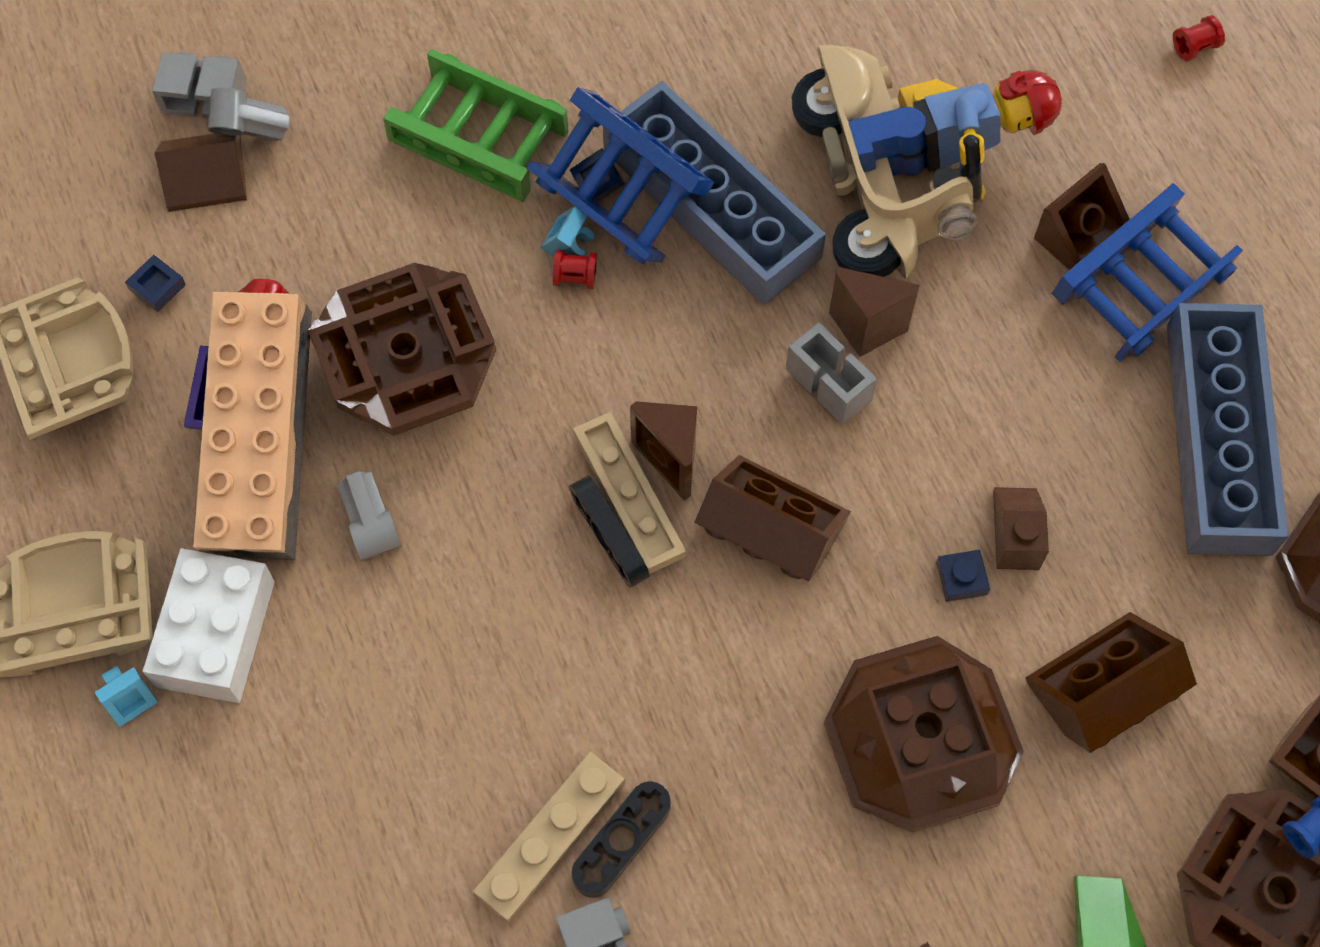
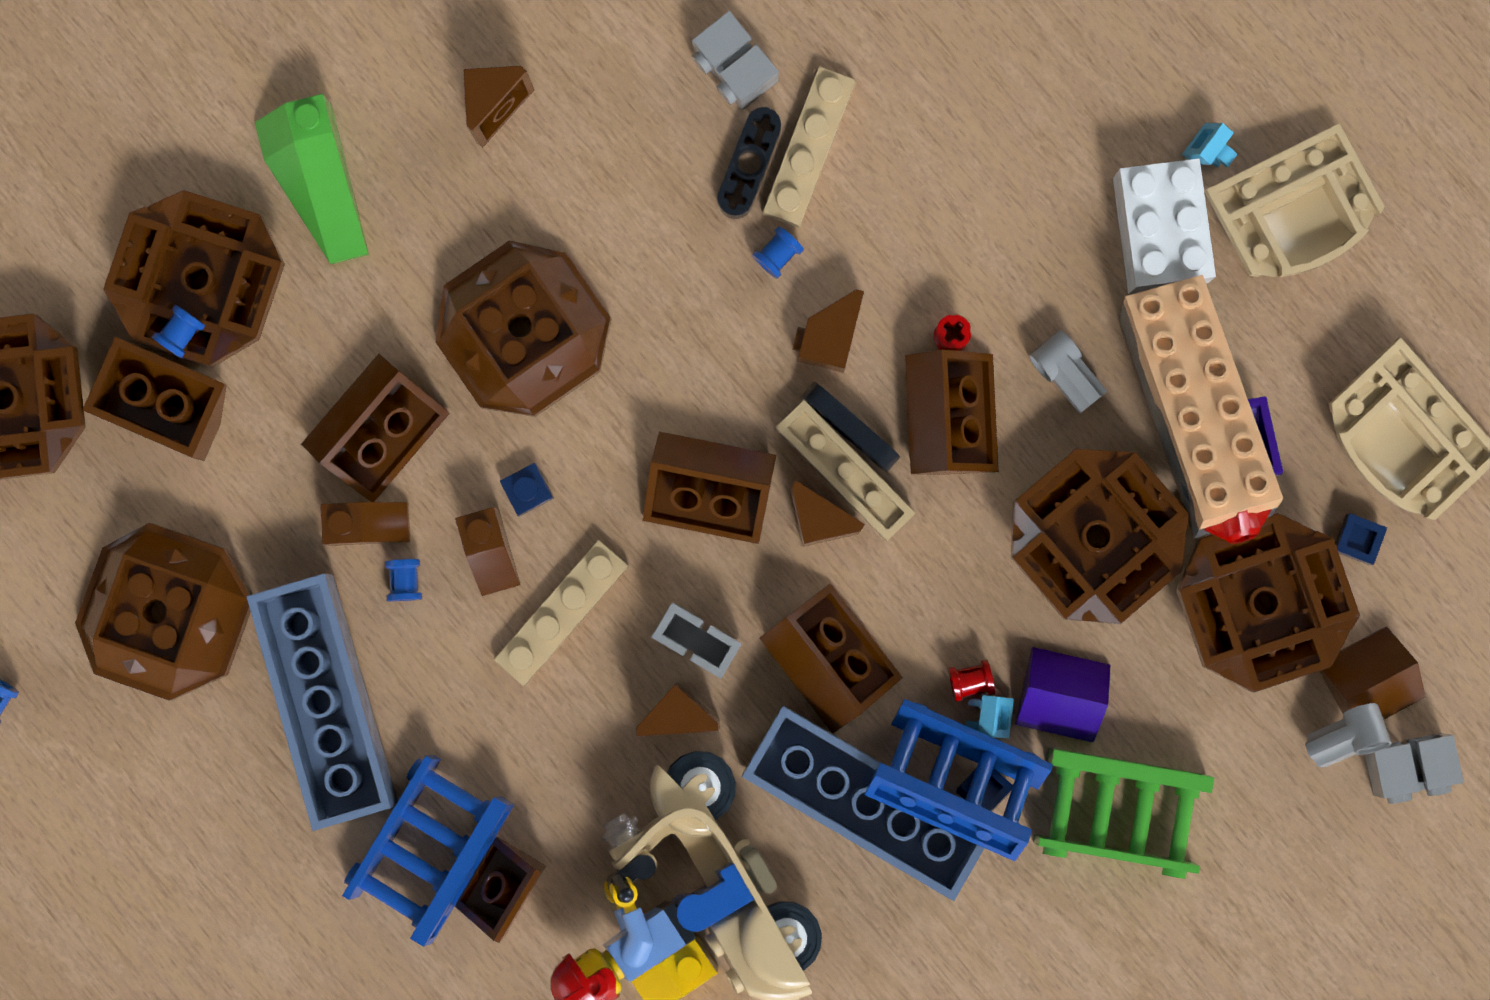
camera: 170 degrees right, 20 degrees up
(259, 210) = (1307, 613): none -> reddish brown piece
(478, 578) = (950, 322): none -> red bush
(489, 237) = (1064, 695): none -> dark purple slope
(502, 511) = (951, 413): none -> reddish brown slope
(596, 627) = (829, 334): none -> reddish brown slope
(623, 729) = (777, 252): none -> blue bush
(702, 325) = (831, 658): none -> reddish brown slope
(958, 449) = (561, 613): none -> tan plate
(1115, 522) = (403, 580): none -> blue bush
(1145, 588) = (365, 523): none -> reddish brown slope

